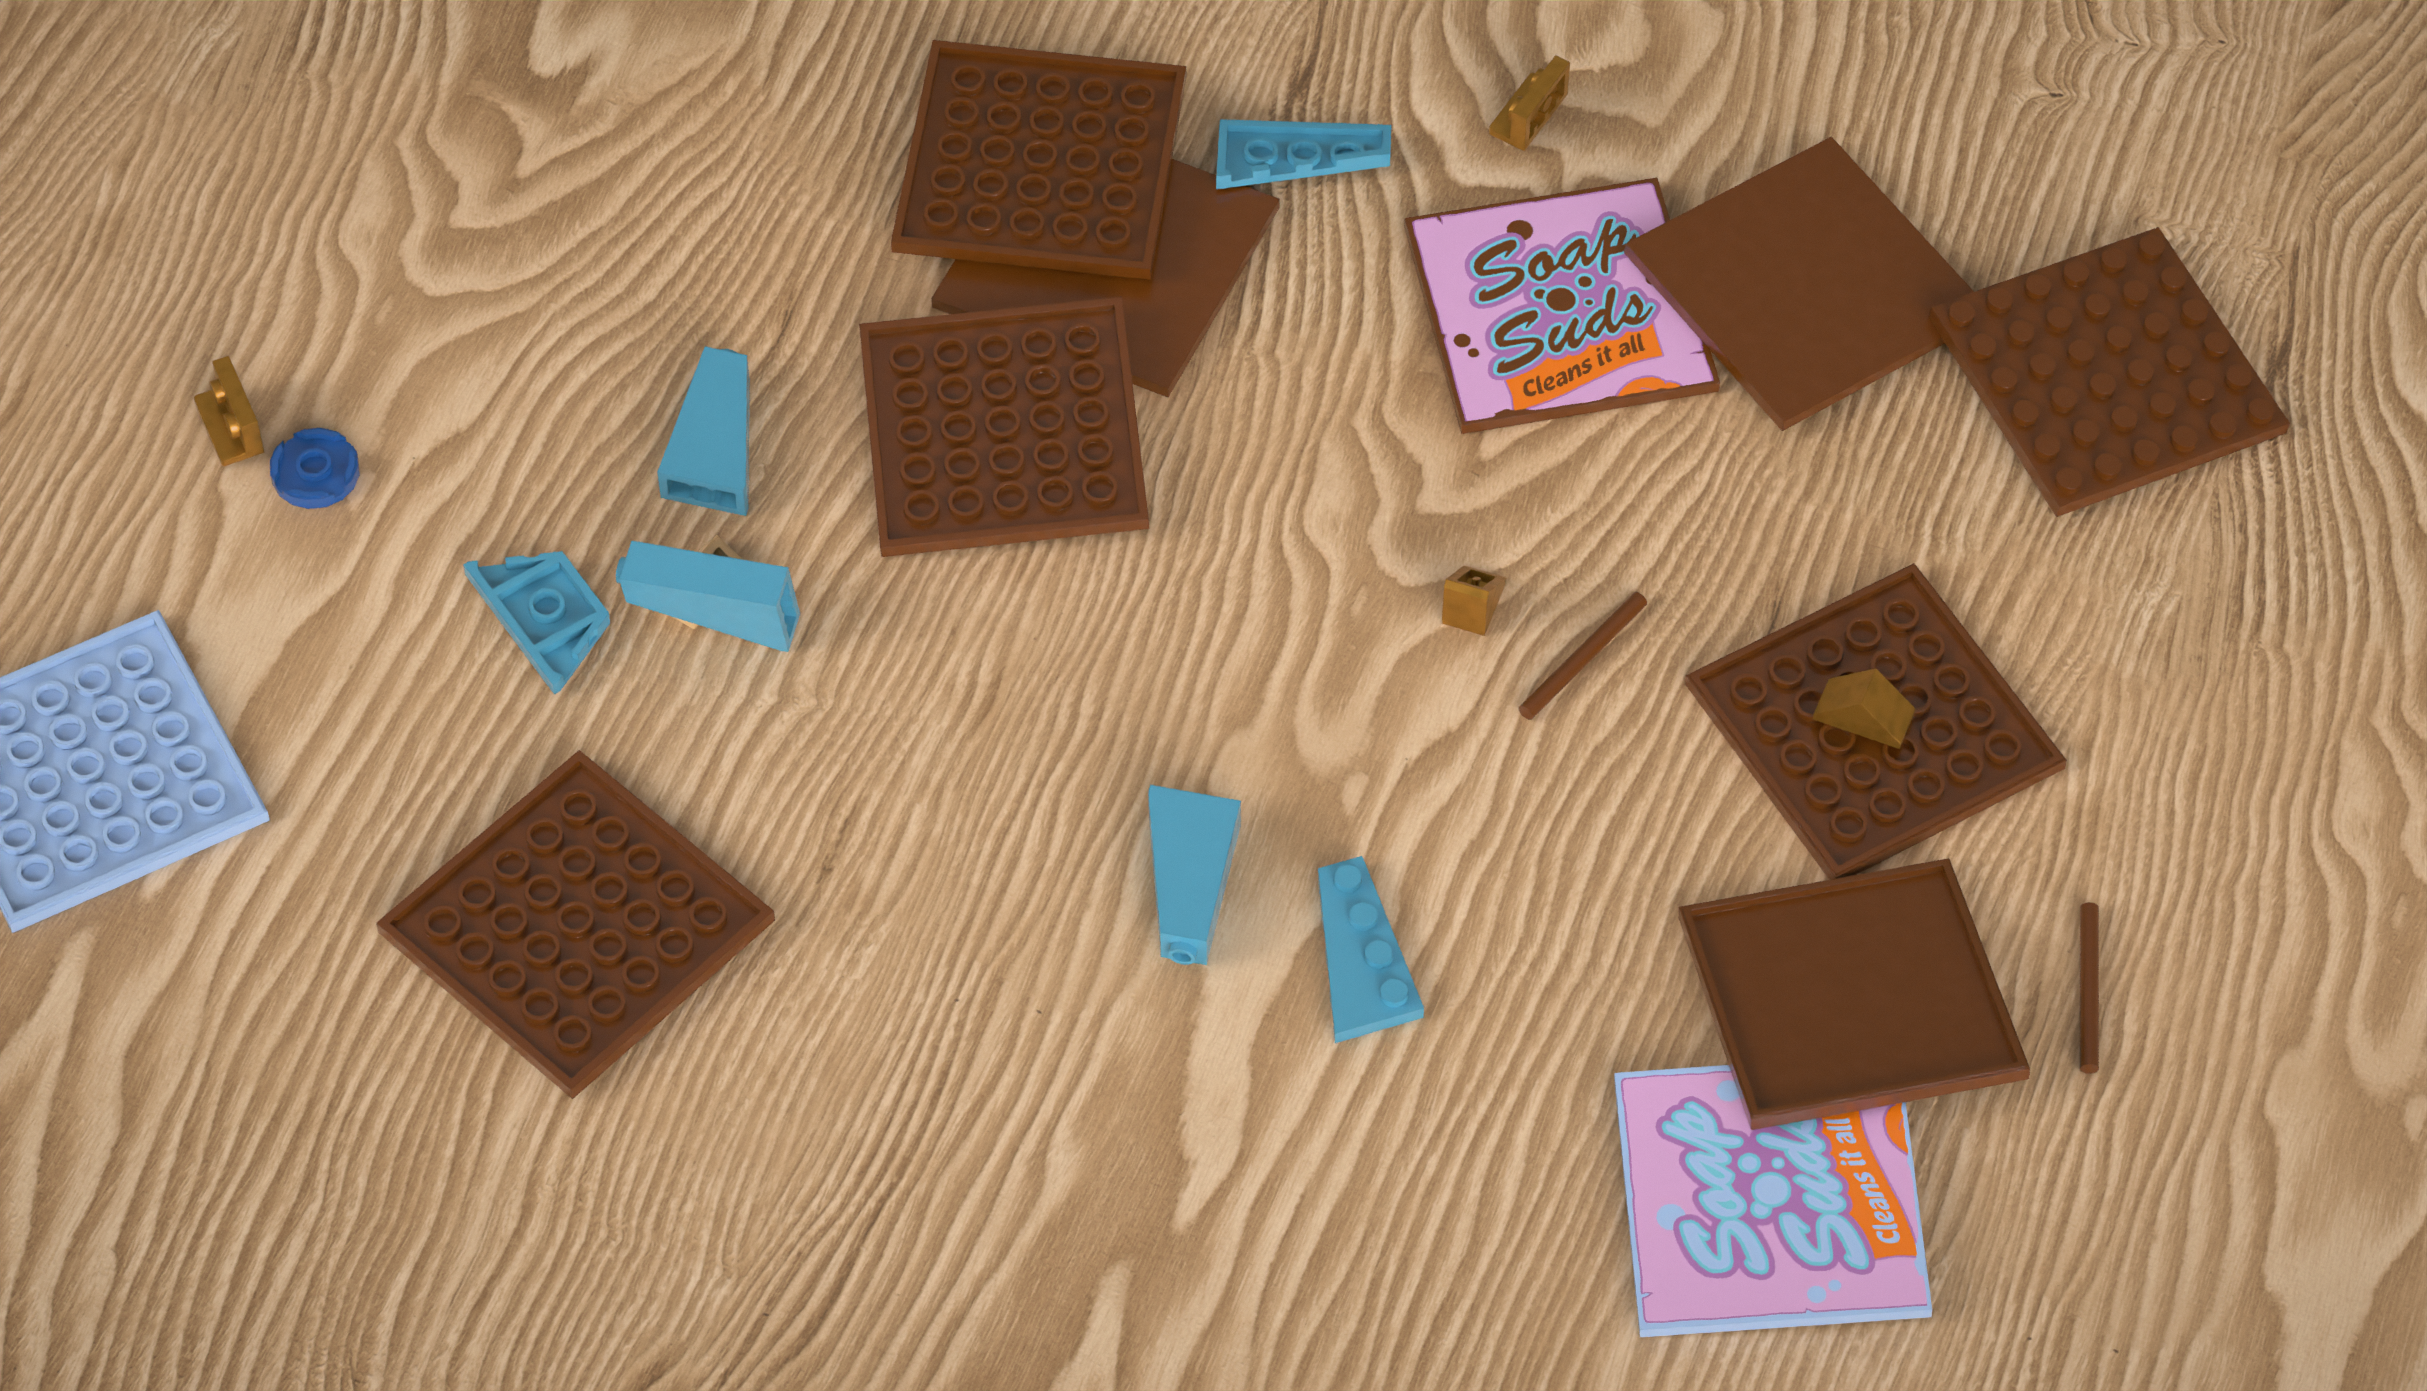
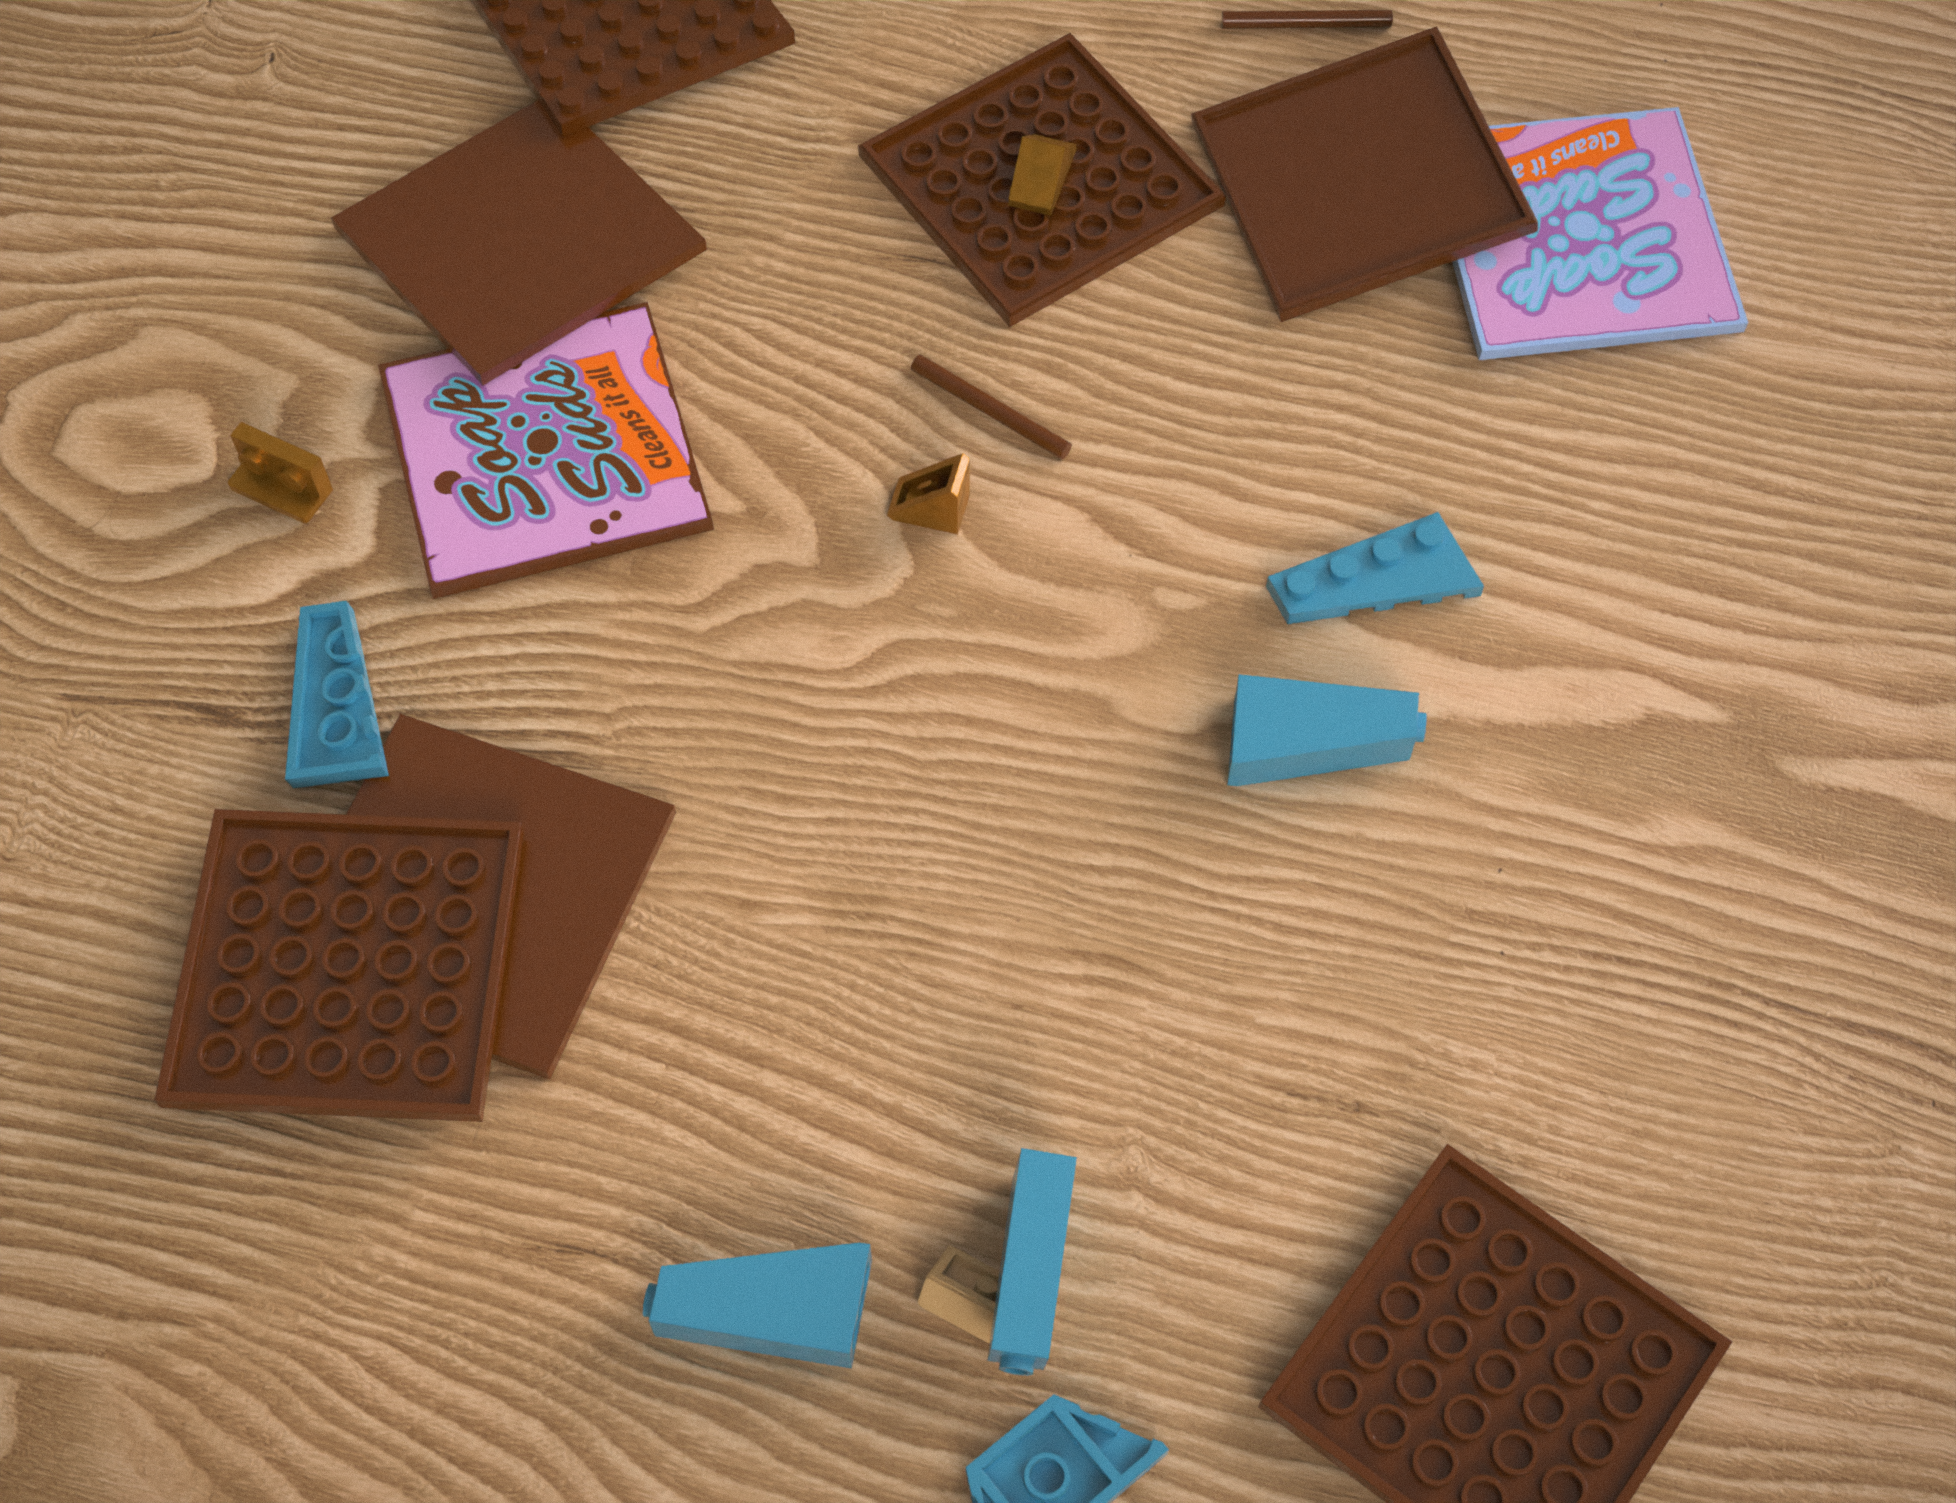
camera: 95 degrees left, 5 degrees up
(1003, 426) = (741, 972): reddish brown plate -> none

